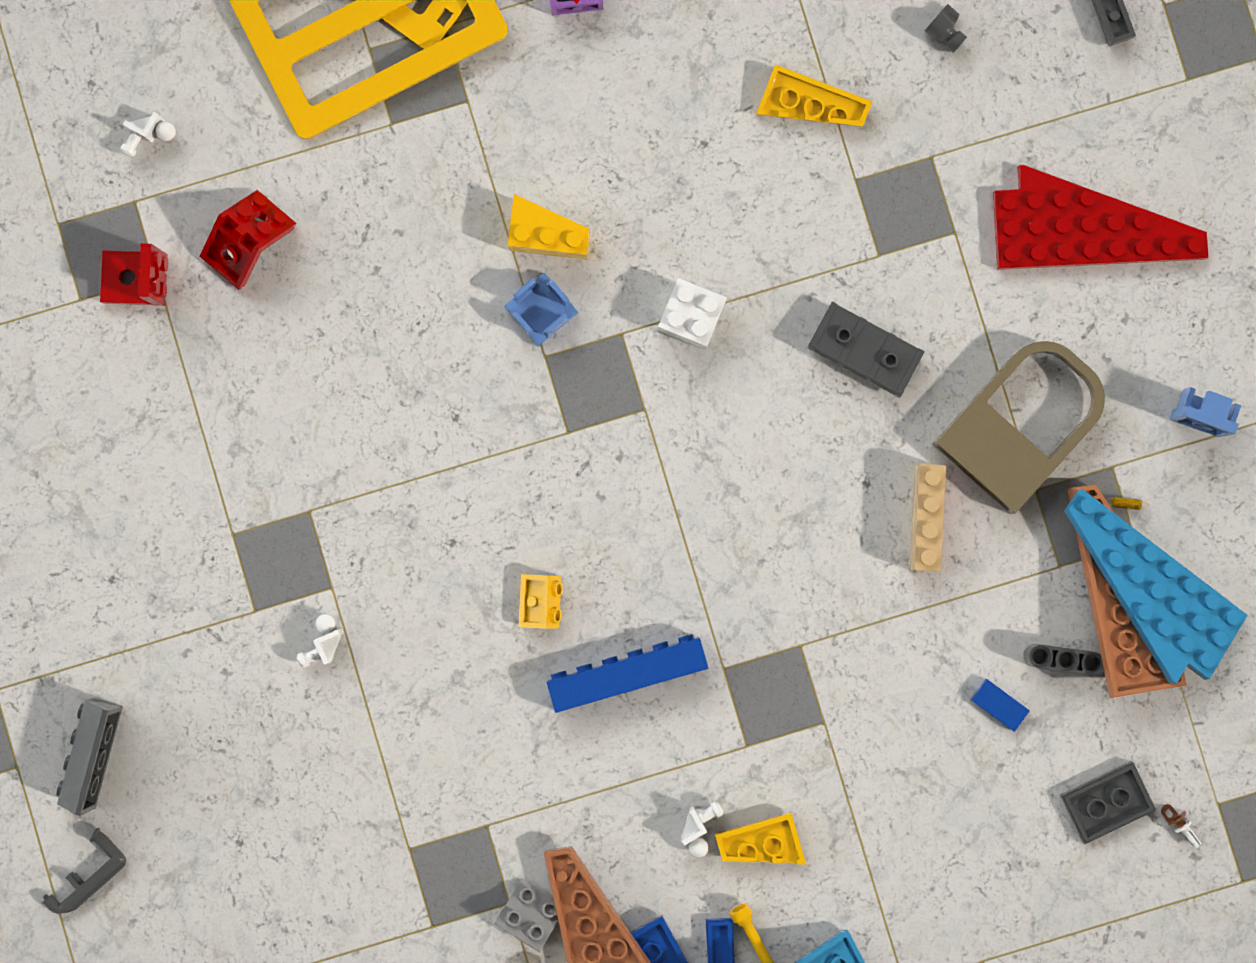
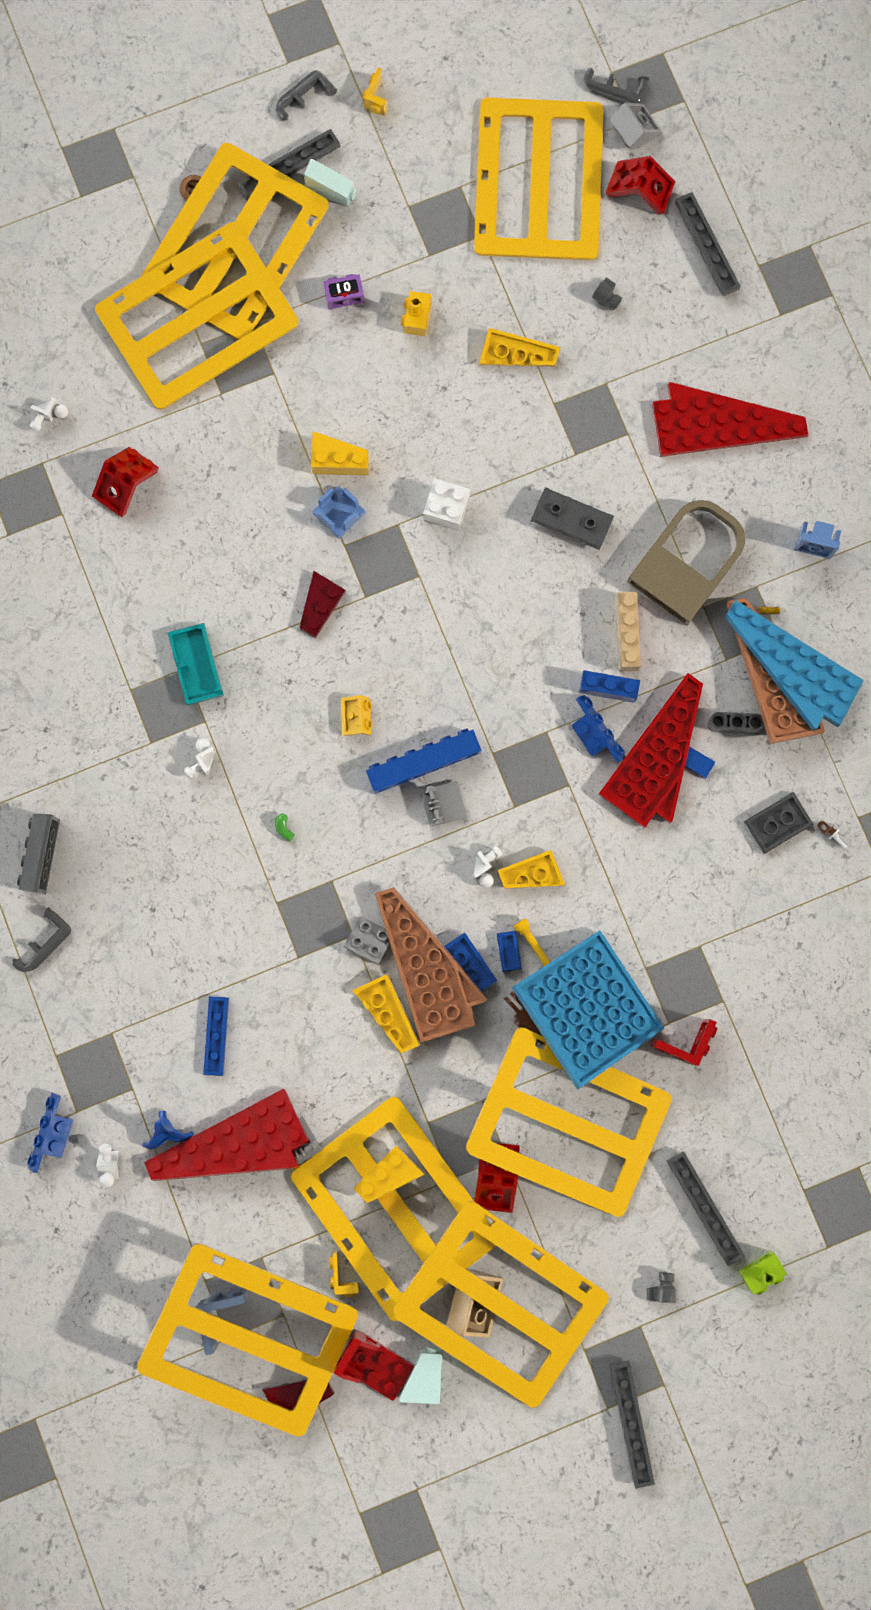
camera: 10 degrees left, 5 degrees down
(149, 271) = (57, 513): red bracket -> none
(324, 508) = (195, 664): none -> teal container
(423, 746) = (281, 829): none -> bright green arm
(503, 438) = (320, 604): none -> dark red wing
(649, 734) = (443, 803): none -> light grey hinge
(676, 33) = (417, 313): none -> yellow brick
(867, 654) = (594, 732): none -> blue bracket
(894, 593) = (609, 686): none -> blue brick
(945, 709) = (654, 768): none -> red wing

